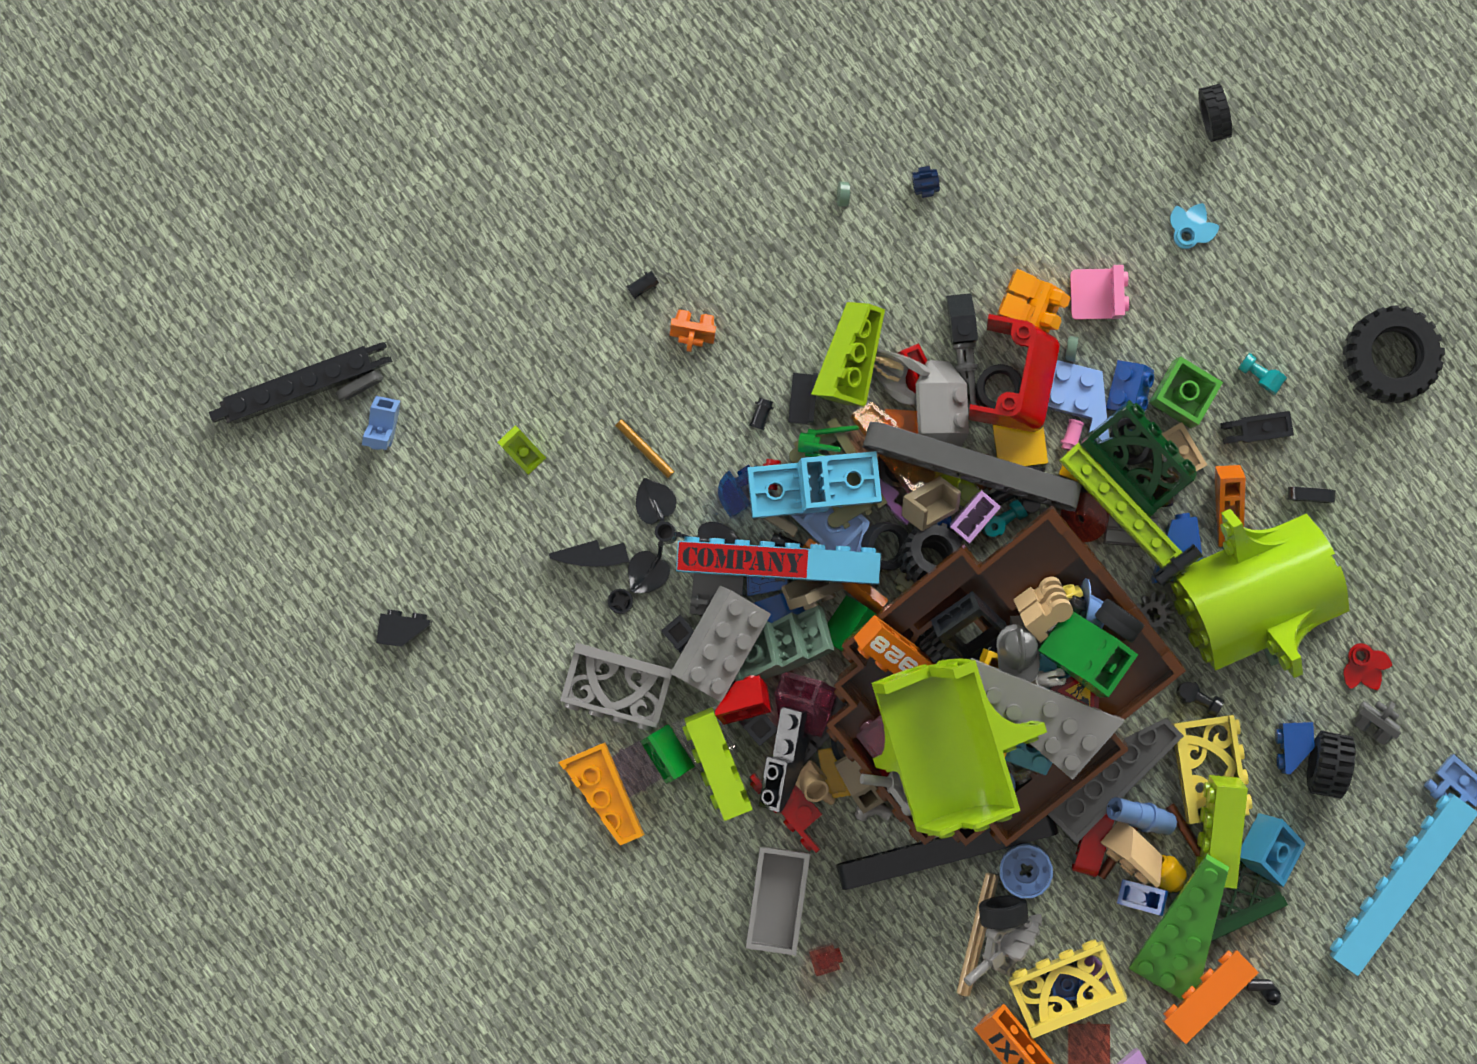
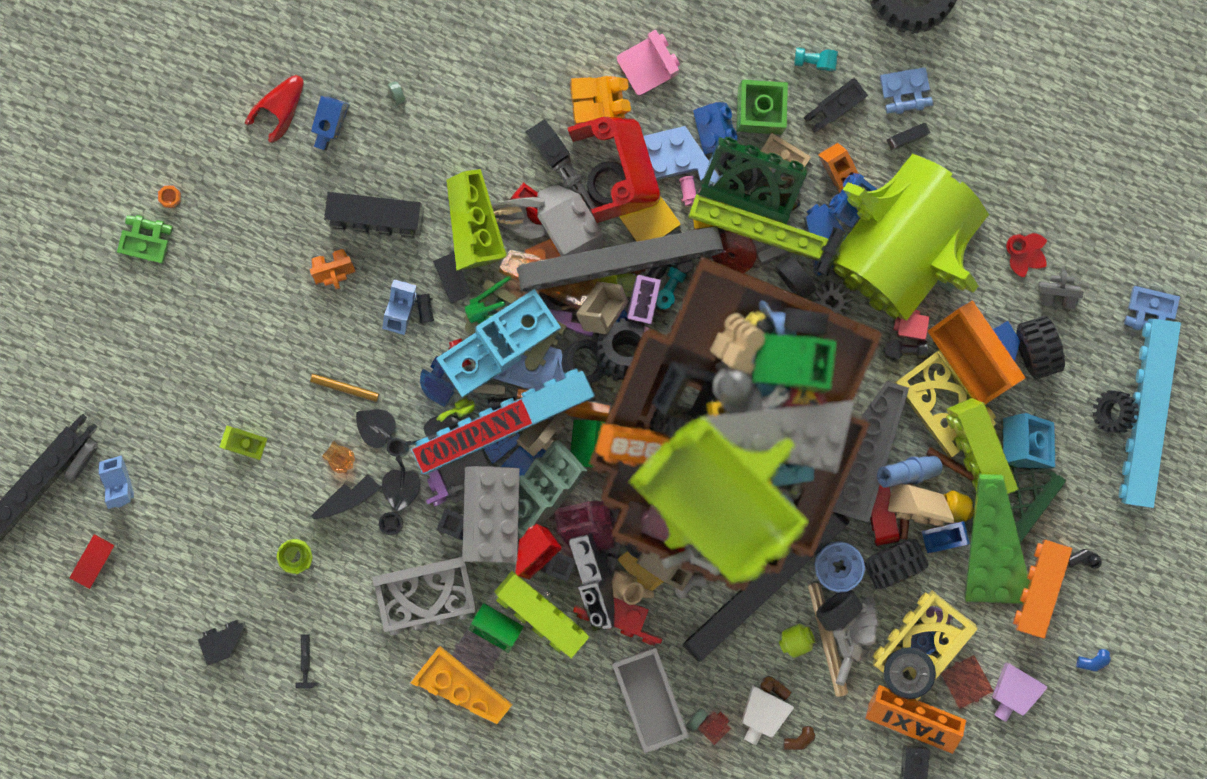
camera: 35 degrees left, 0 degrees up
(319, 486) = (91, 561): none -> red slope
(469, 690) = (305, 663): none -> black piece
(508, 575) = (287, 552): none -> lime hair
(524, 212) = (144, 246): none -> bright green plate
(575, 179) = (169, 196): none -> orange tile
(604, 513) = (339, 458): none -> clear orange animal
(643, 284) = (271, 254): black pin -> none
(683, 586) = (437, 484): none -> medium lavender bracket
(729, 146) = (282, 103): none -> red animal
(738, 400) = (399, 307): none -> medium blue brick
(747, 527) = (462, 408): none -> lime plate
(760, 298) = (373, 213): none -> black brick
(773, 180) = (332, 111): none -> blue torso
(812, 943) = (697, 719): none -> sand green tile
(878, 973) = (764, 714): none -> white torso
(901, 948) = (770, 683): none -> reddish brown arm
(901, 1018) = (802, 741): none -> reddish brown arm
(925, 181) = (458, 47): dark blue gear -> none
(947, 919) = (797, 640): none -> lime head
(1055, 1008) = (909, 658): none -> wheel
(1071, 350) = (650, 120): sand green tile -> none
(1081, 897) = (896, 563): none -> black tyre
(1131, 572) = (795, 277): none -> black tyre
(1210, 526) = (841, 207): none -> blue bracket
(1218, 681) = (913, 328): none -> coral brick
(1265, 737) = (976, 353): none -> orange piece
(1335, 442) = (906, 83): none -> medium blue plate
(1379, 872) = (1126, 416): none -> black tyre

